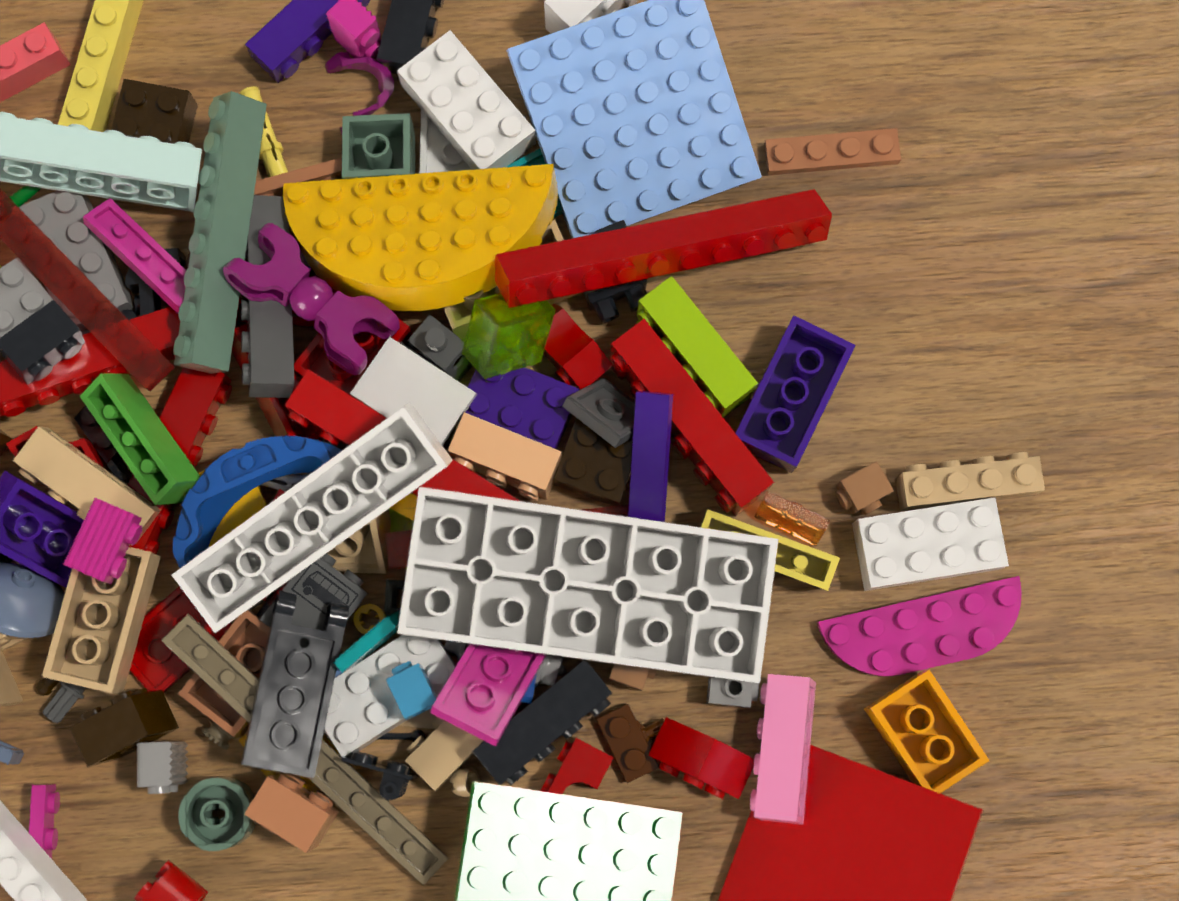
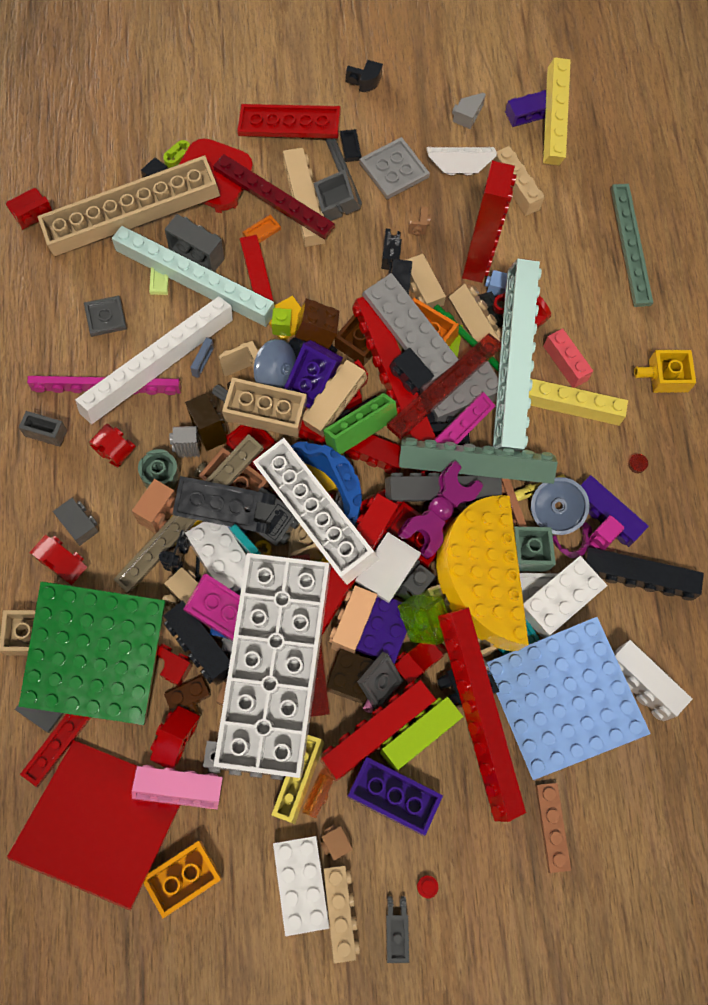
camera: 85 degrees right, 10 degrees down
(104, 541) = (302, 403): dark pink brick -> none
(155, 112) = (544, 429): dark brown brick -> none
(318, 87) = (574, 505): none -> sand blue dish
(411, 689) = (219, 566): dark azure brick -> none
(650, 455) = (351, 704): dark purple tile -> none
(925, 347) = (427, 886): none -> red plate
(926, 629) = (248, 884): dark pink plate -> none
(993, 396) = (397, 933): none -> dark grey hinge

